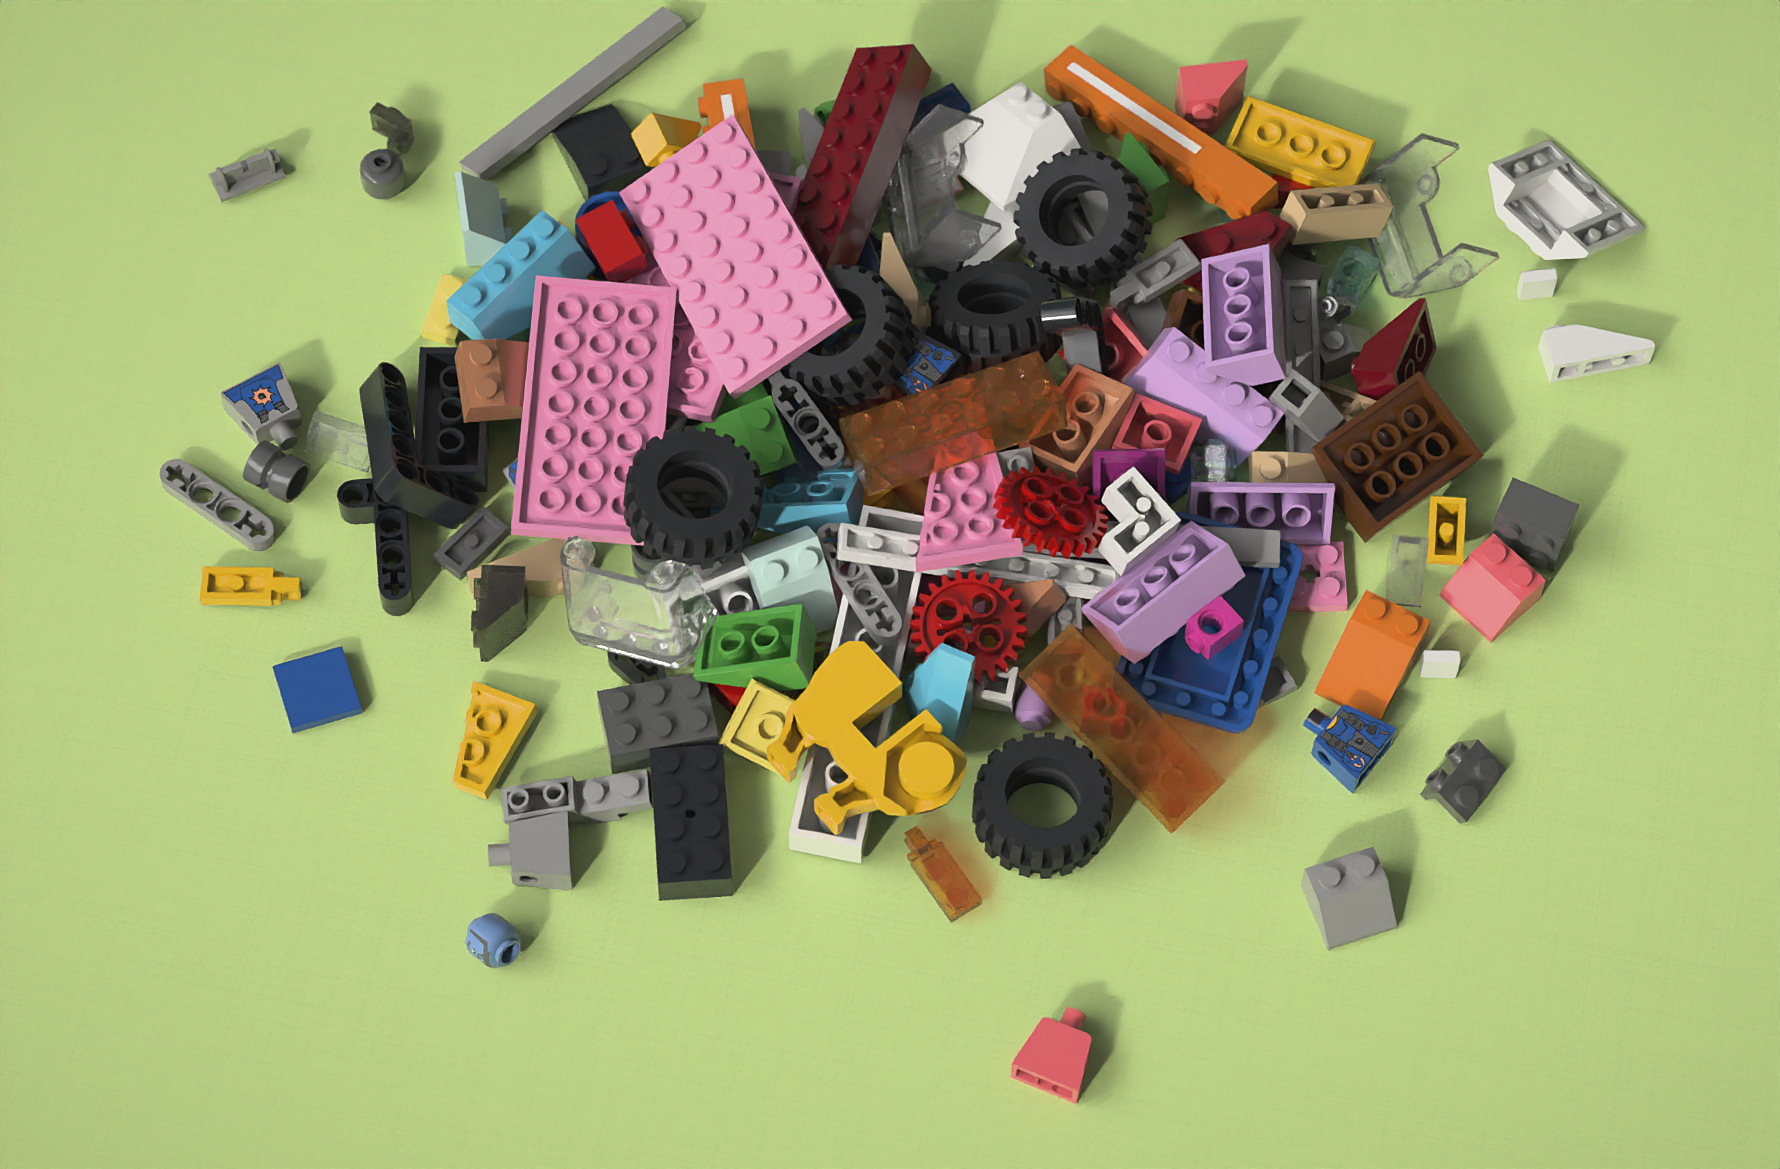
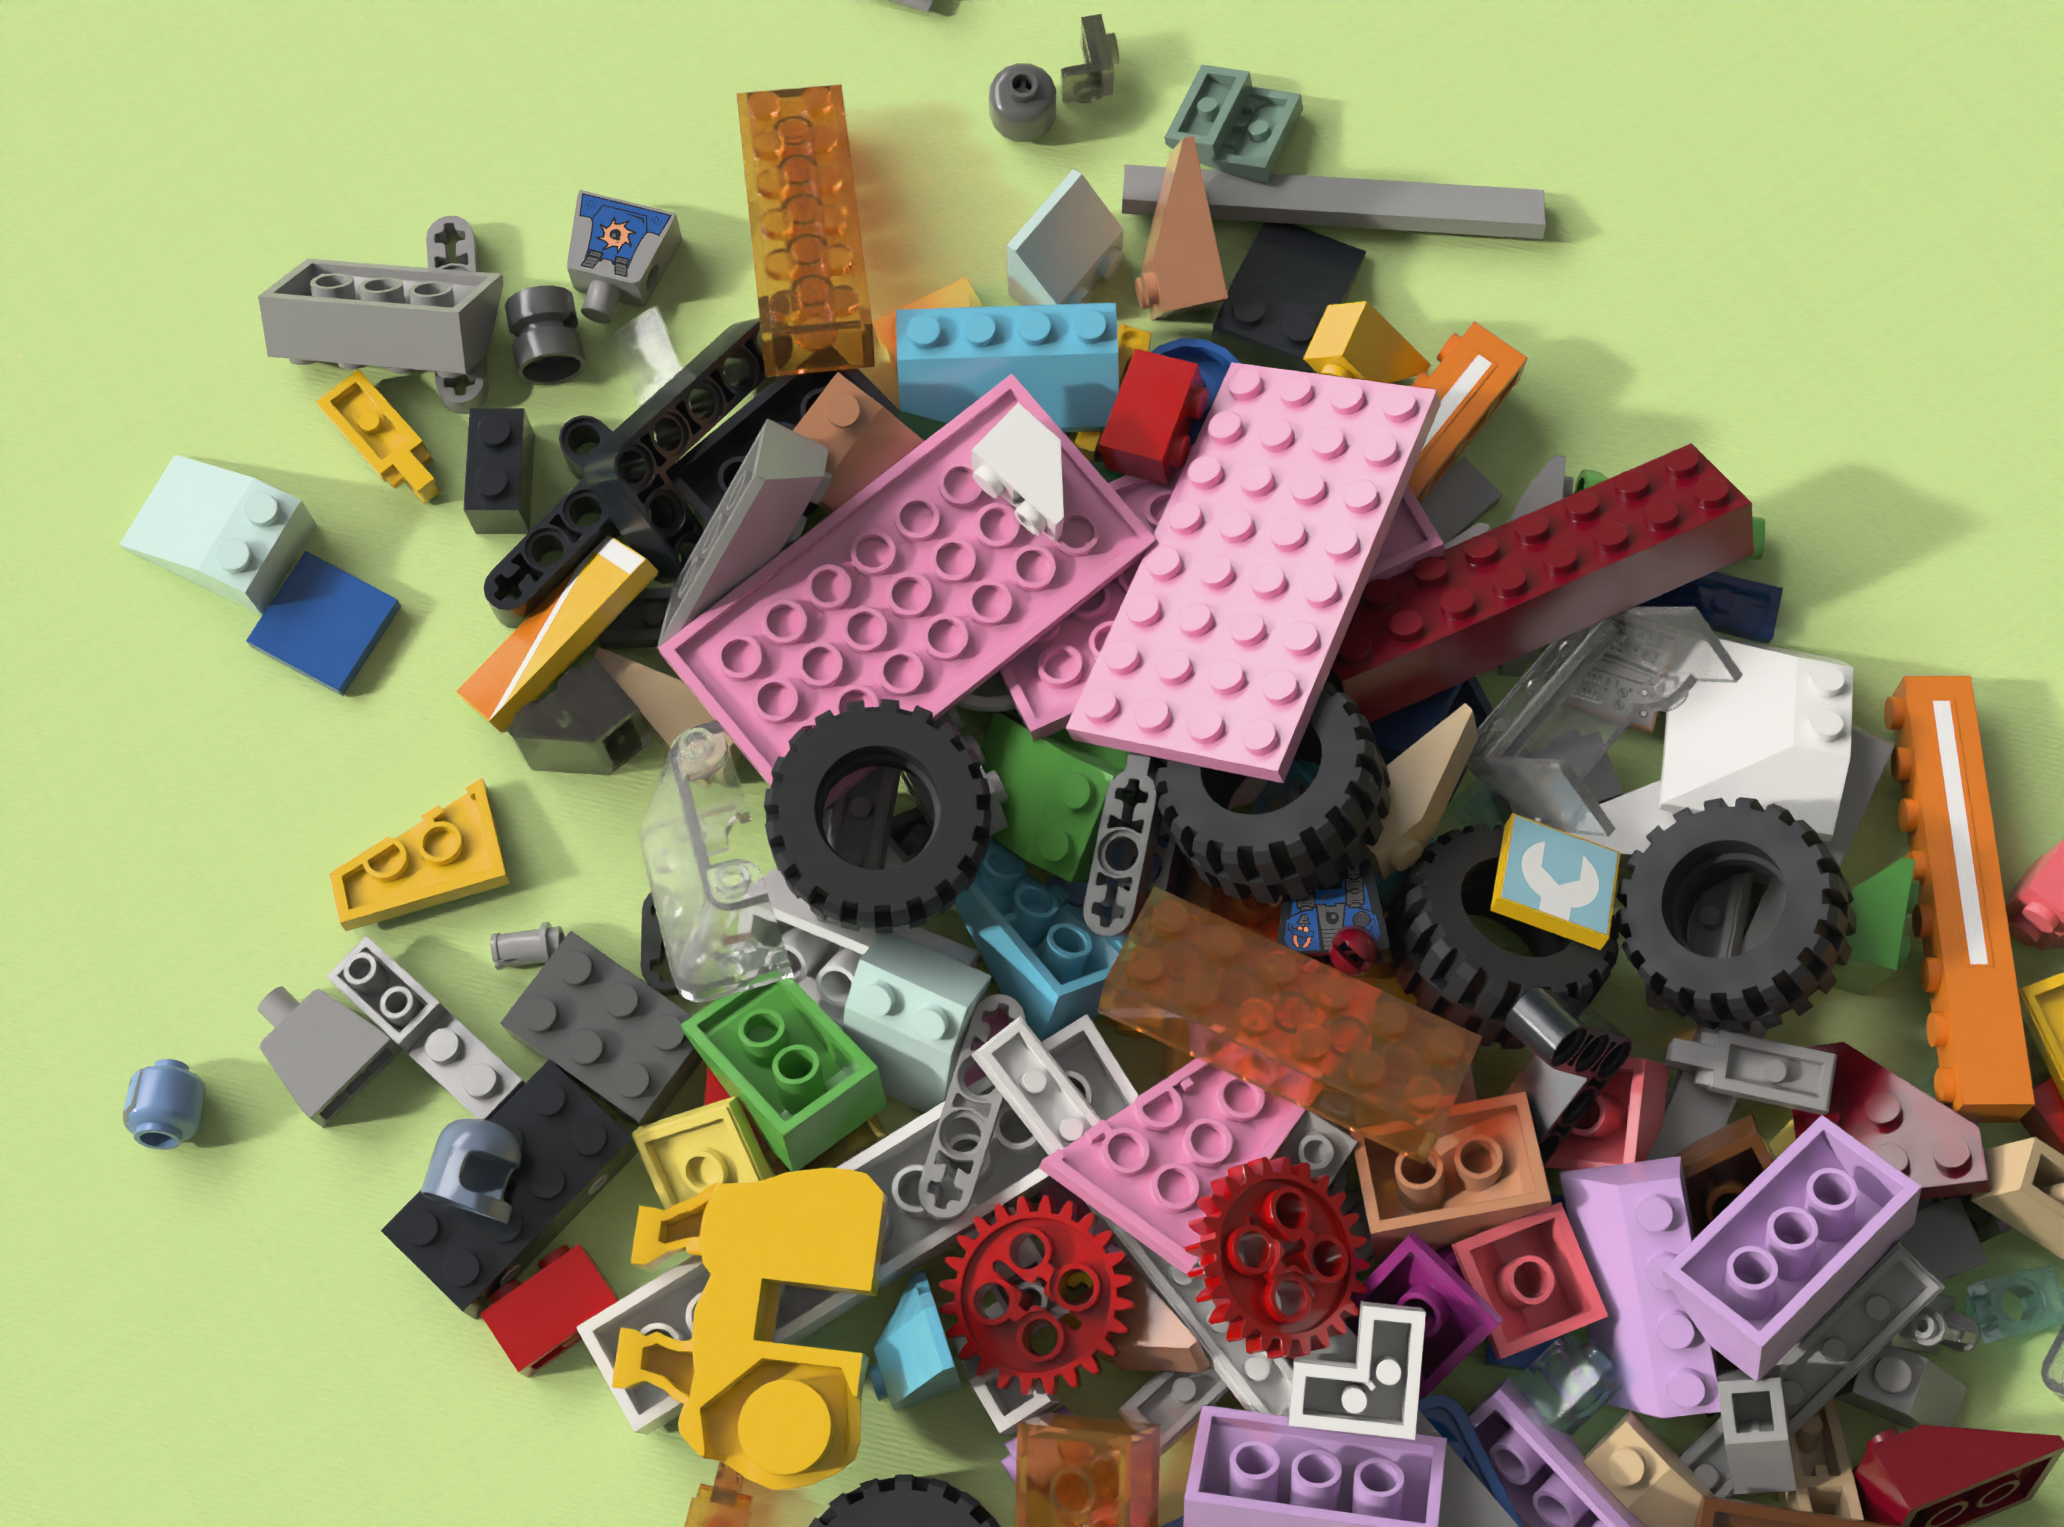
camera: 50 degrees right, 10 degrees up
(191, 531) = (381, 316): none -> light grey slope
(218, 695) = (221, 531): none -> light aqua slope
(326, 547) = (499, 471): none -> black brick
(354, 311) = (805, 231): none -> clear orange brick
(440, 583) = (557, 632): none -> yellow tile
(490, 99) = (1234, 123): none -> sand green slope
(490, 448) = (751, 522): none -> light grey slope
(531, 162) = (1181, 253): none -> nougat slope
(579, 726) = (525, 946): none -> light grey pin
(594, 305) = (1025, 467): none -> white slope
(672, 807) = (473, 1167): none -> sand blue helmet
(763, 852) = (541, 1315): none -> red brick
(948, 359) = (1361, 942): none -> dark red hinge
(997, 271) = (1556, 881): none -> tile

